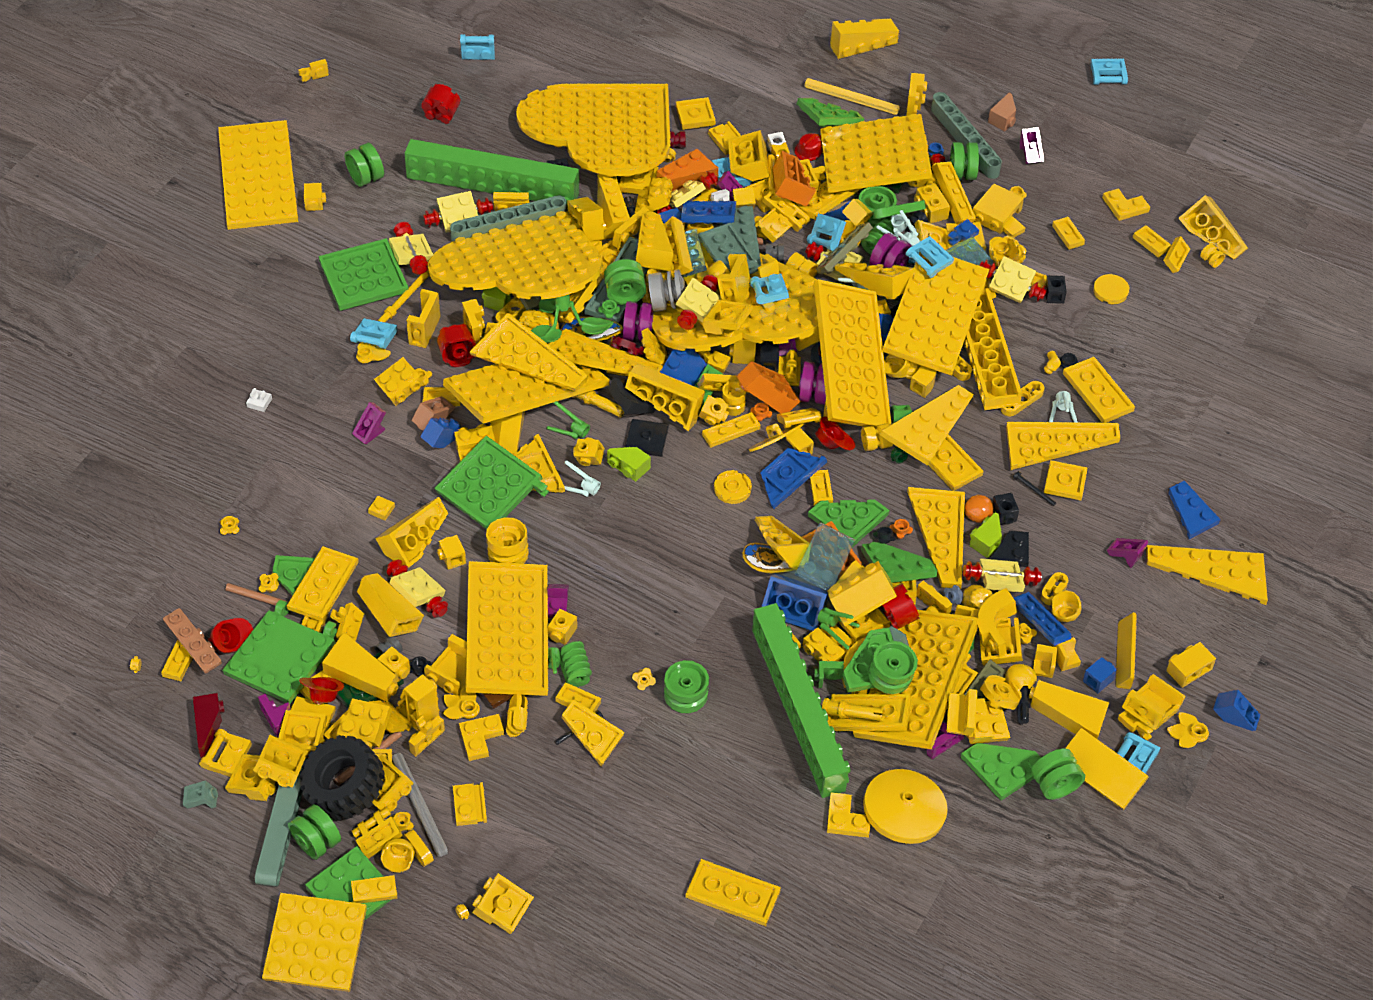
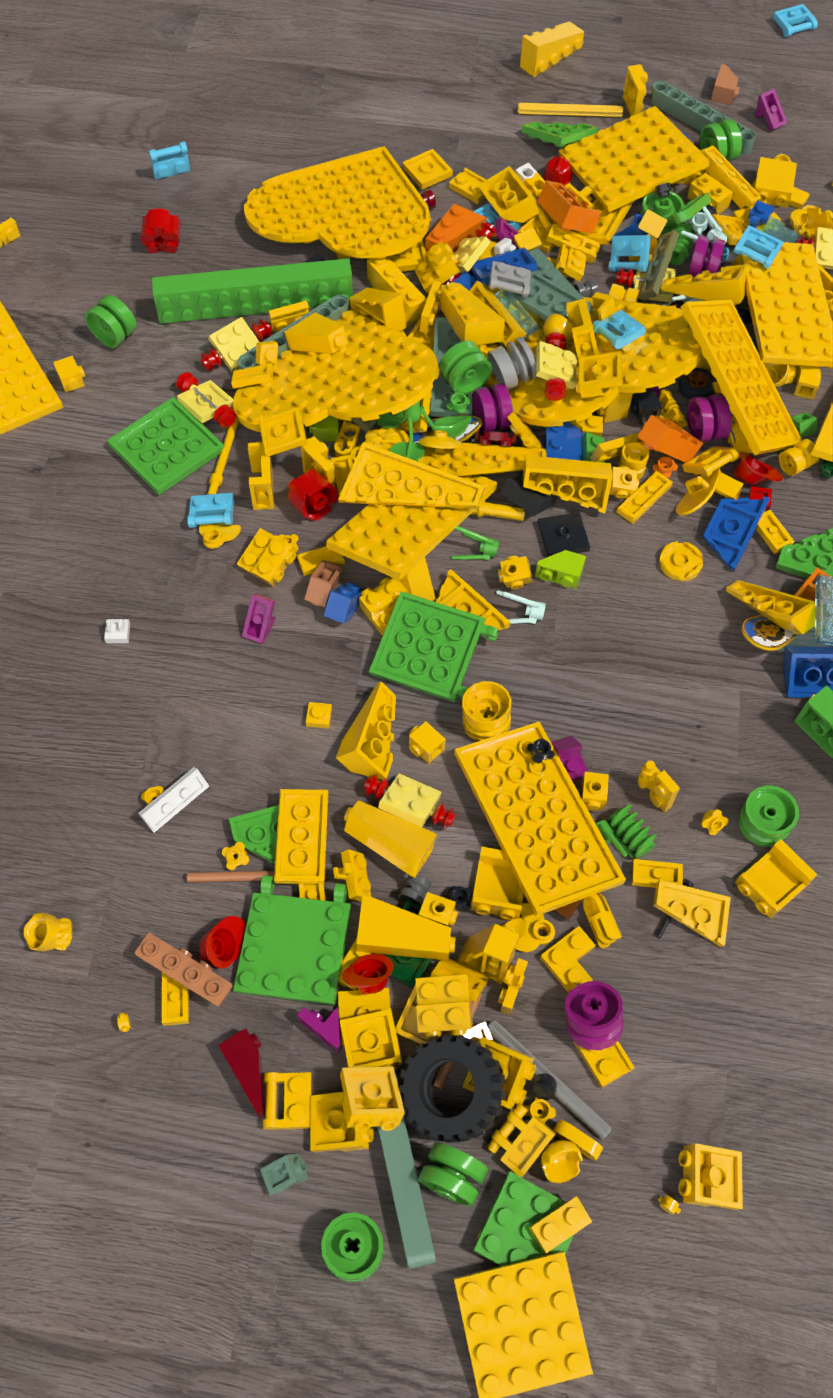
camera: 20 degrees left, 10 degrees up
(110, 588) = (47, 932): none -> yellow hair
(223, 853) = (340, 1234): none -> bright green wheel
(242, 530) = (173, 799): none -> white tile
(412, 804) = (543, 1086): none -> black plate
(451, 287) = (282, 431): none -> yellow plate
(455, 239) = (252, 375): none -> yellow tile
(472, 770) = (594, 1015): none -> magenta wheel
(475, 224) = (266, 352): none -> yellow plate
(521, 222) = (316, 335): none -> yellow slope
(533, 583) = (542, 745): none -> black plate
(576, 332) = (440, 440): none -> yellow dish
(610, 636) = (661, 786): none -> yellow plate
(668, 734) = (775, 879): none -> yellow panel
(702, 222) = (510, 278): none -> light grey plate
(831, 458) = (758, 493): none -> red plate
(880, 187) = (663, 190): none -> black plate

